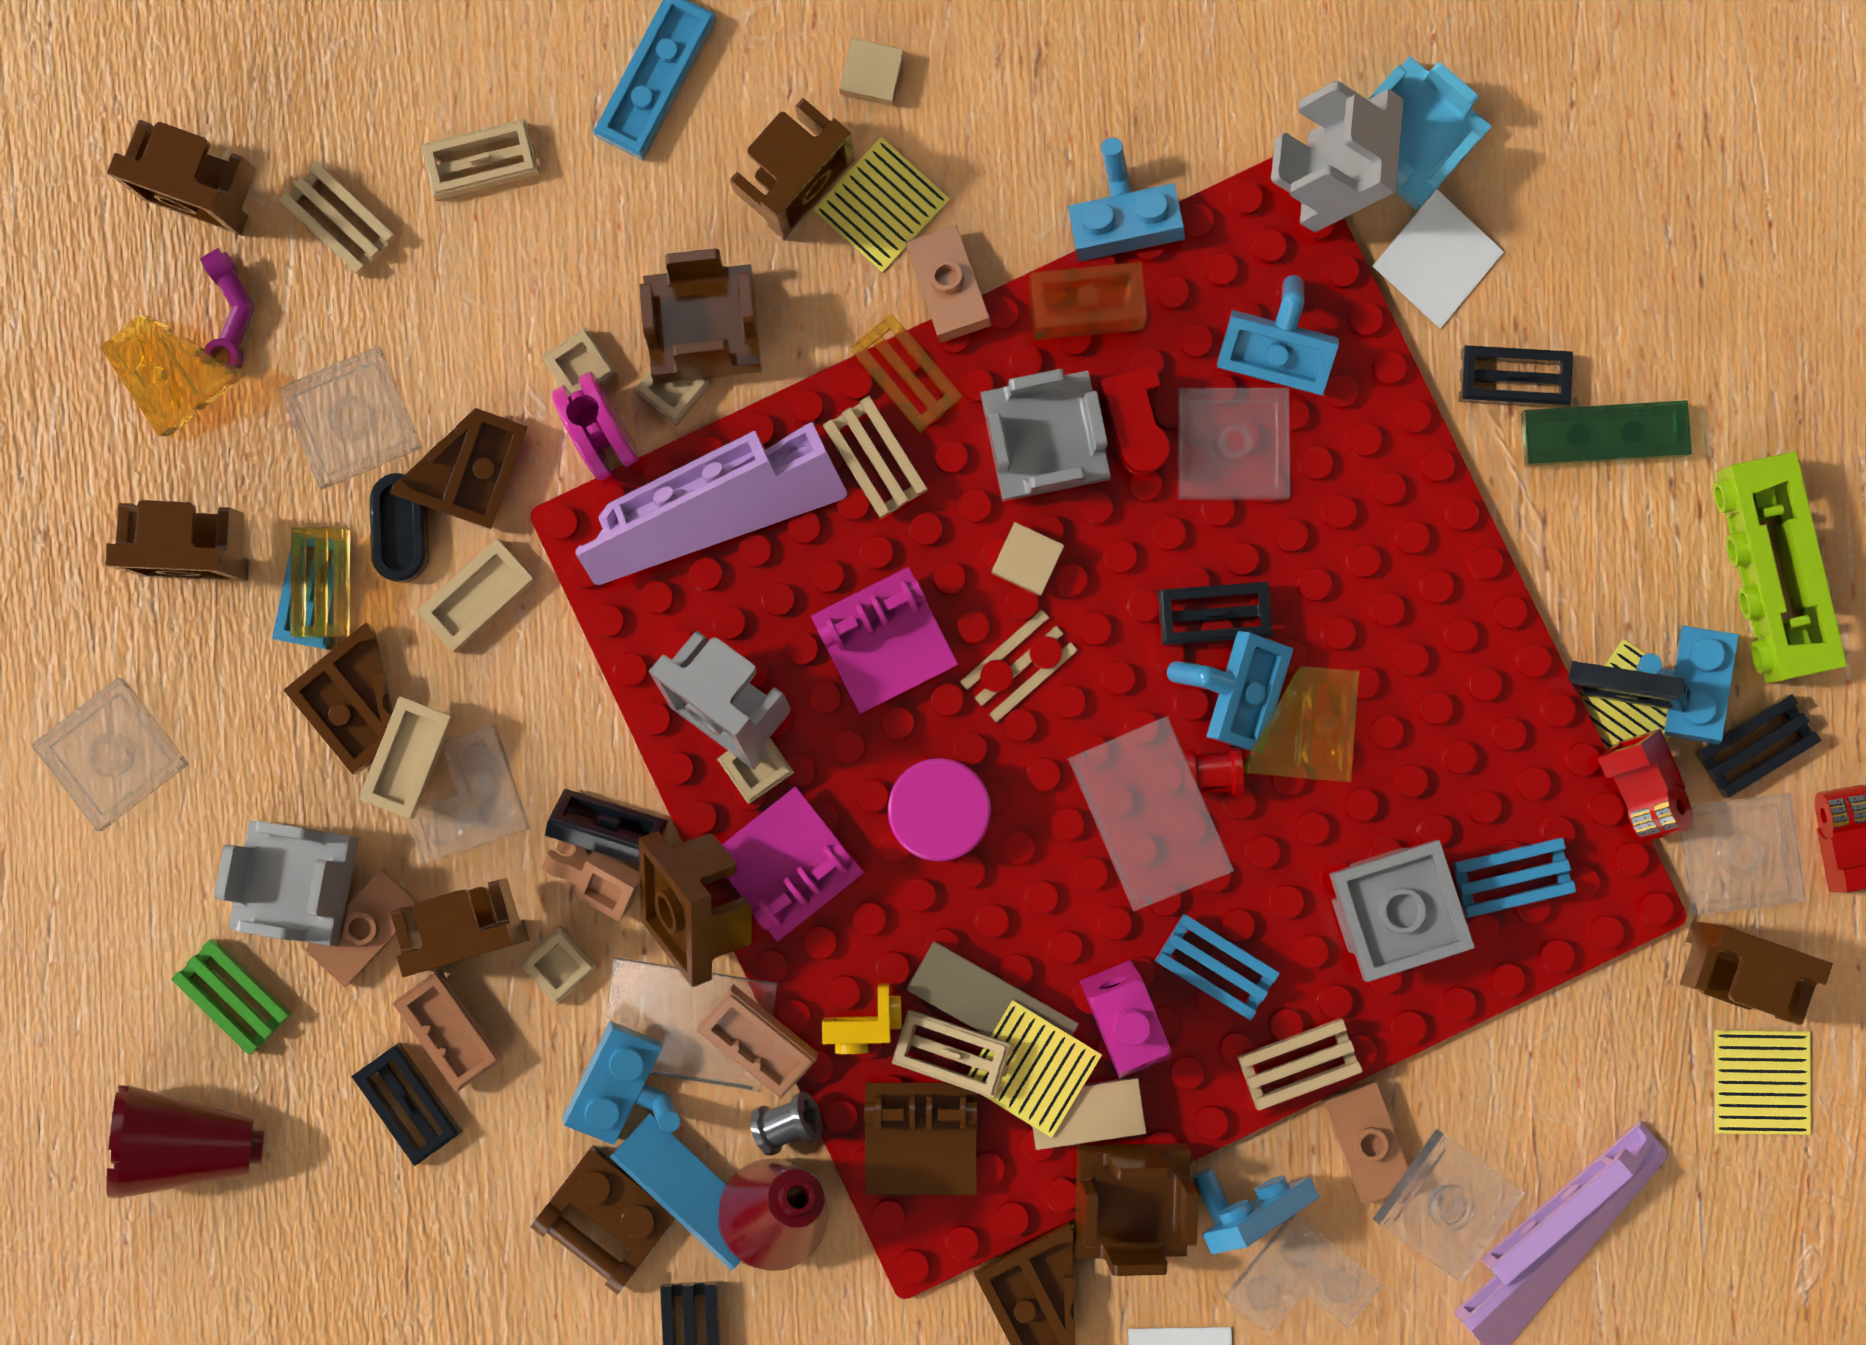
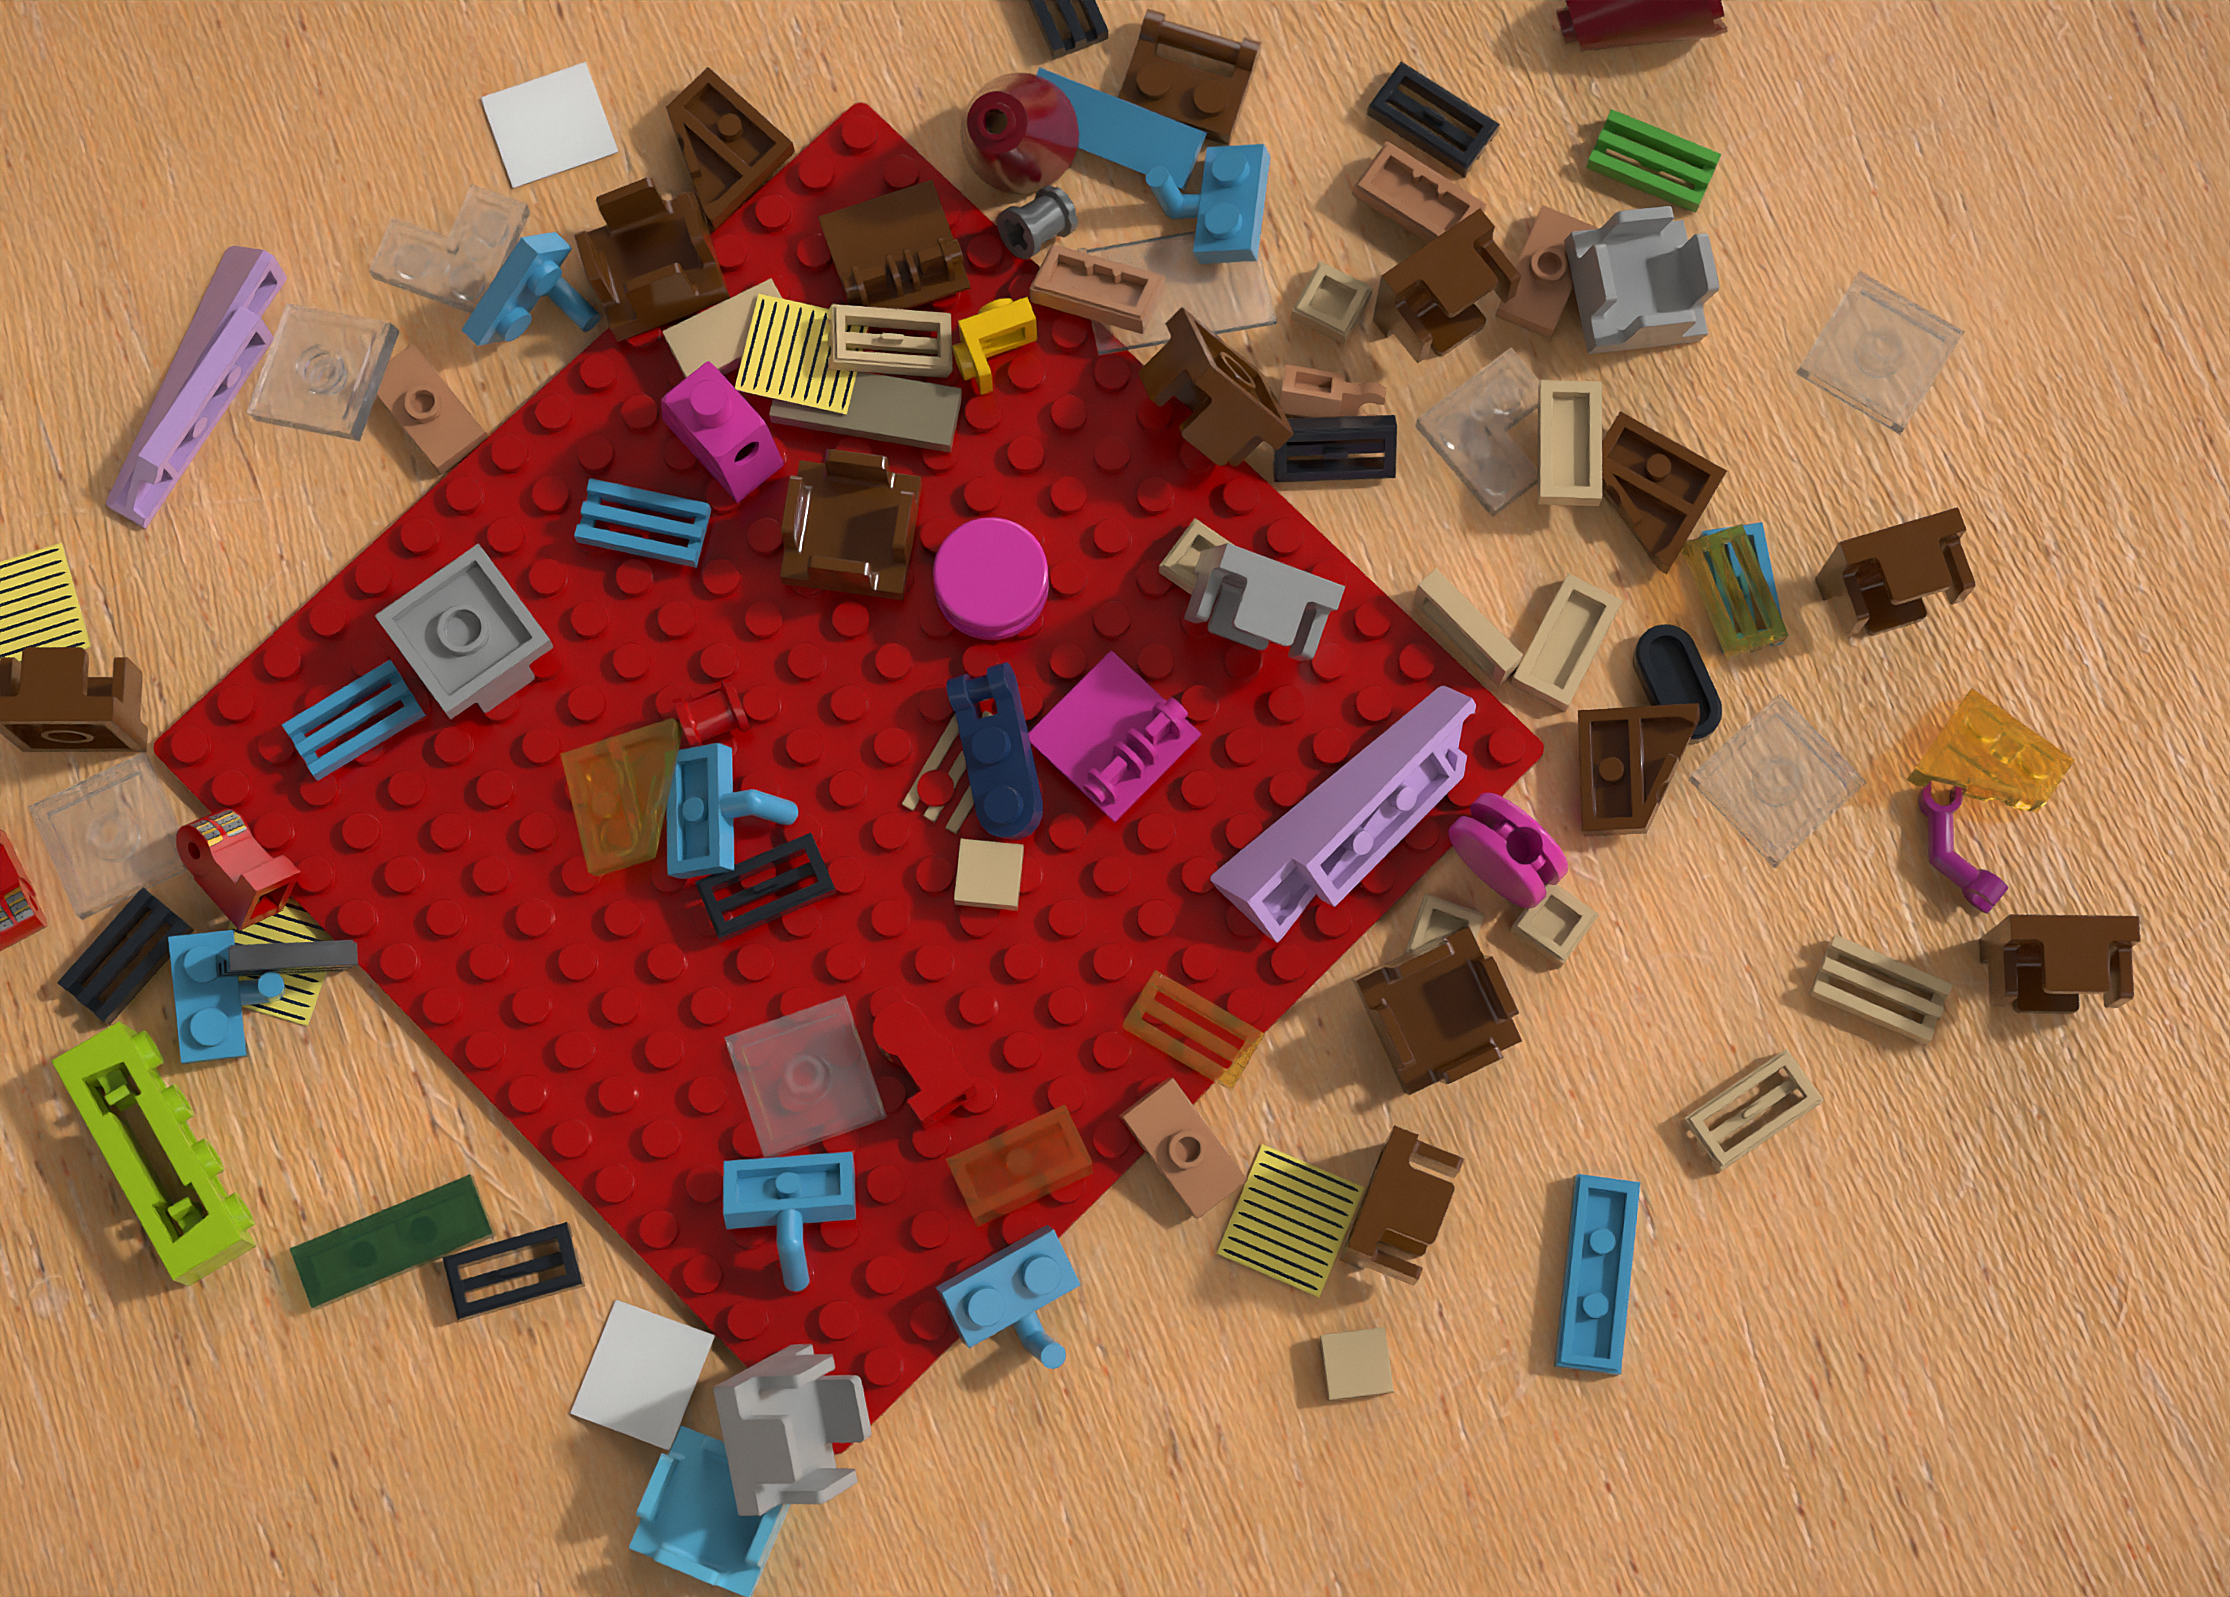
camera: 155 degrees right, 10 degrees down
(554, 631) = (1467, 627): none -> tan tile
(788, 864) = (1131, 473): dark pink hinge -> none
(850, 418) = (1153, 892): tan tile -> none
(985, 657) = (997, 753): none -> dark blue plate
(1042, 899) = (850, 525): none -> reddish brown panel
(1046, 433) = (1016, 1011): light grey panel -> none
(1150, 814) = (764, 647): clear piece -> none
(1342, 1048) = (512, 436): tan tile -> none

